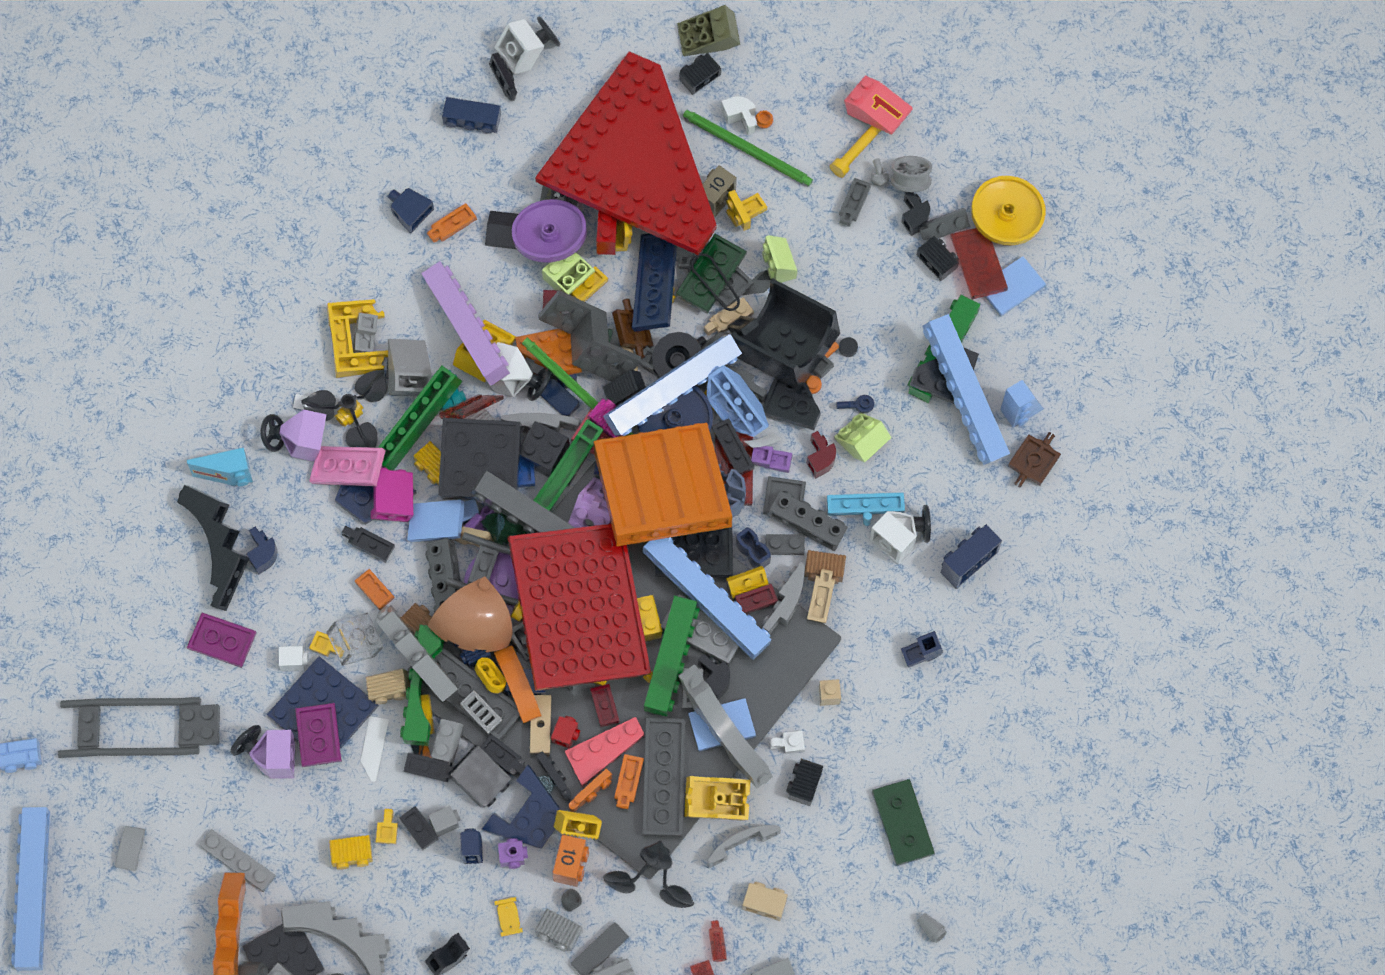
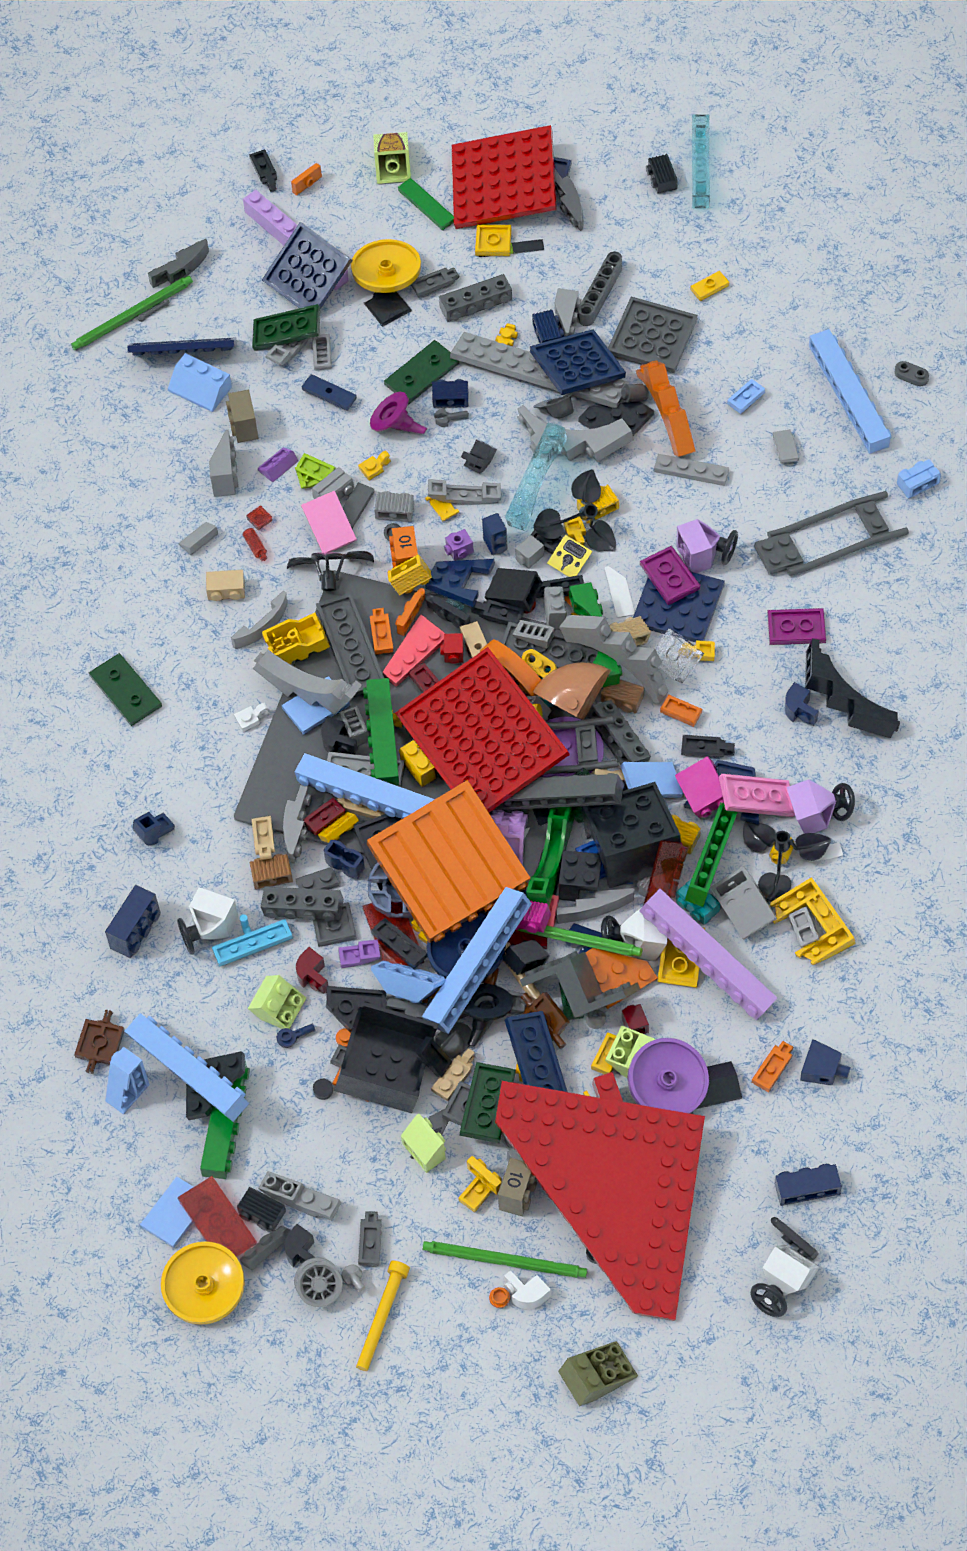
camera: 165 degrees right, 10 degrees down
(139, 925) = (746, 396): none -> light blue plate
(224, 467) = (870, 753): medium azure slope -> none
(292, 658) = (725, 629): white brick -> none
(368, 815) = (584, 487): none -> black plant
(406, 799) = (569, 556): none -> light yellow sticker
(408, 889) = (526, 494): none -> clear light blue arch
(479, 920) = (464, 494): none -> light grey slope
(634, 932) = (328, 522): none -> bright pink tile
(699, 73) = (587, 1320): black brick -> none
(732, 290) = (466, 1093): black piece -> none
(764, 441) = (377, 956): white sticker -> none
(805, 782) = (223, 687): black brick -> none
(829, 692) = (227, 764): tan brick -> none
(877, 105) = (380, 1346): coral slope -> none
(900, 257) = (299, 1197): none -> light grey slope
(932, 928) = (72, 615): light grey cone -> none

